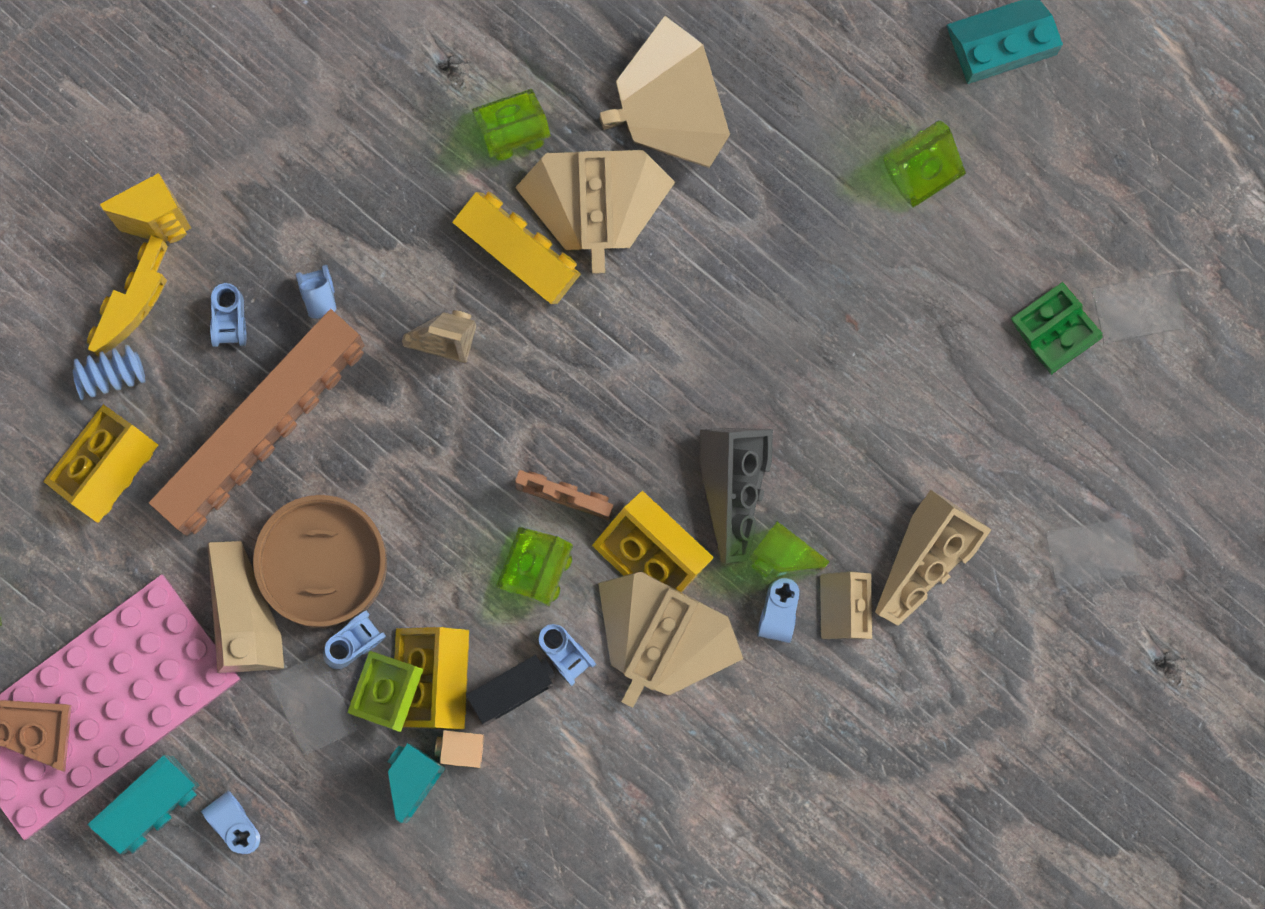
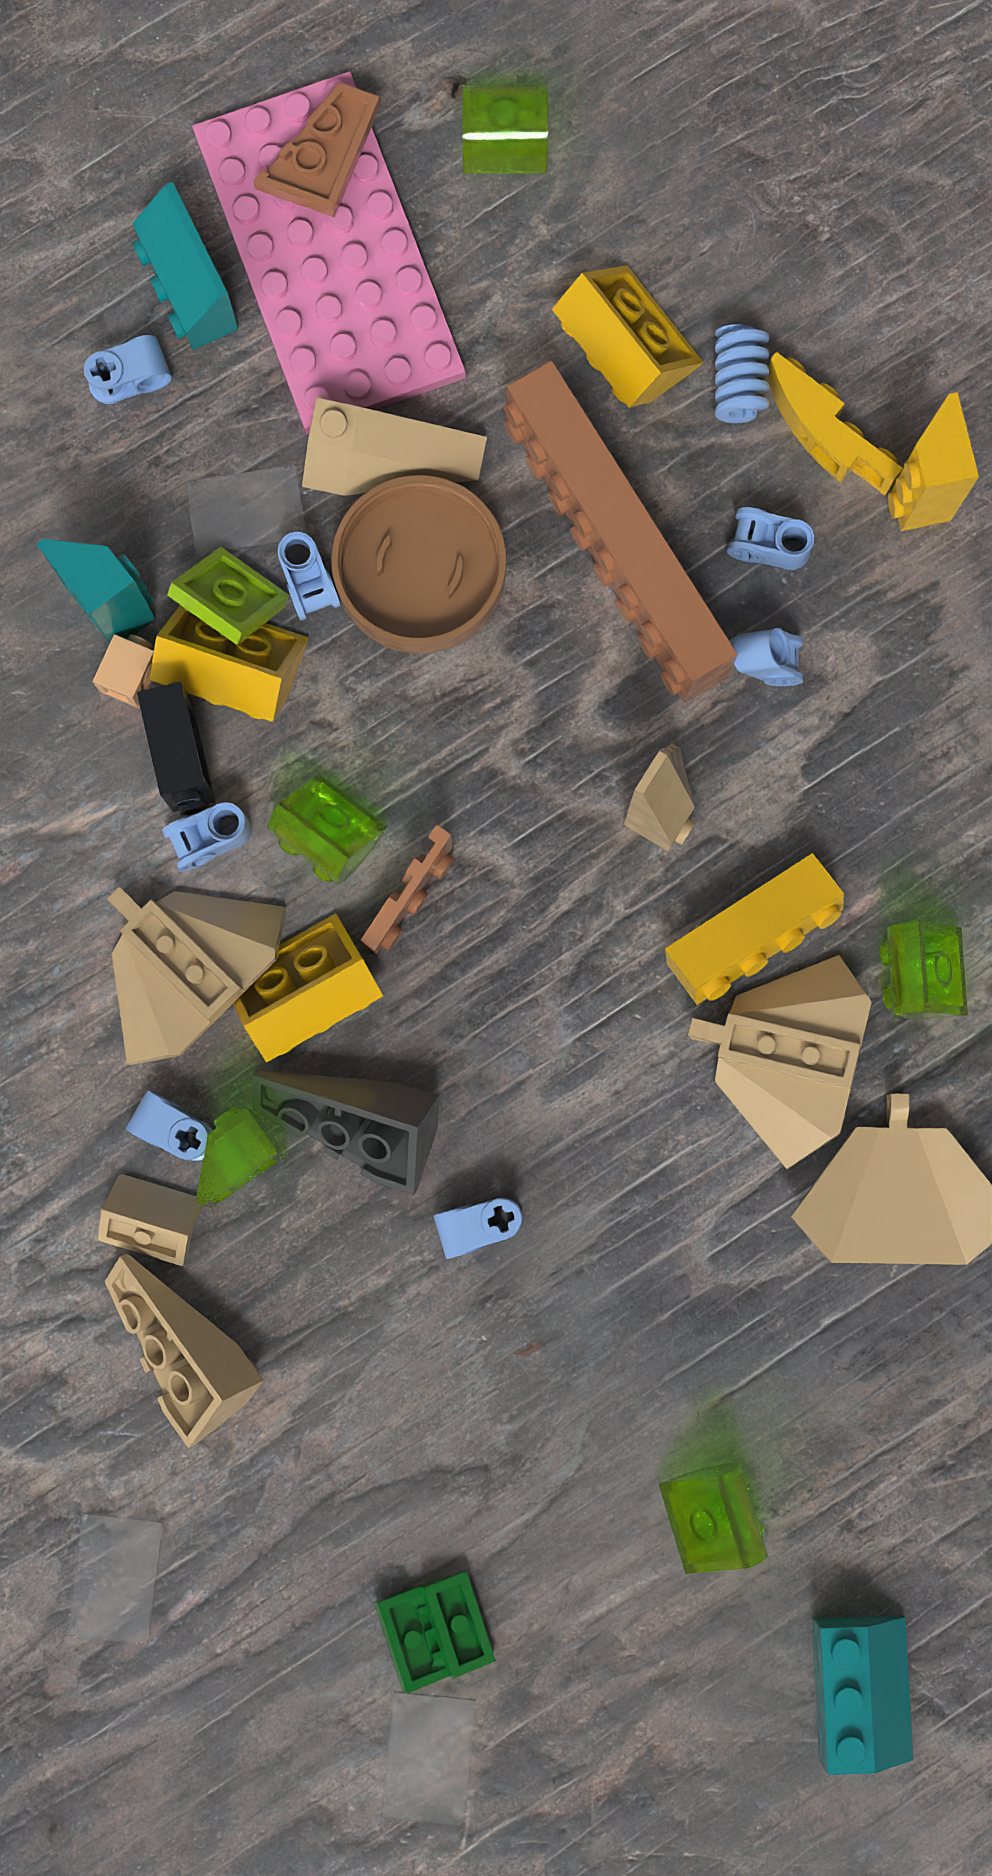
camera: 115 degrees right, 0 degrees up
(783, 384) = (470, 1228): none -> light blue piece

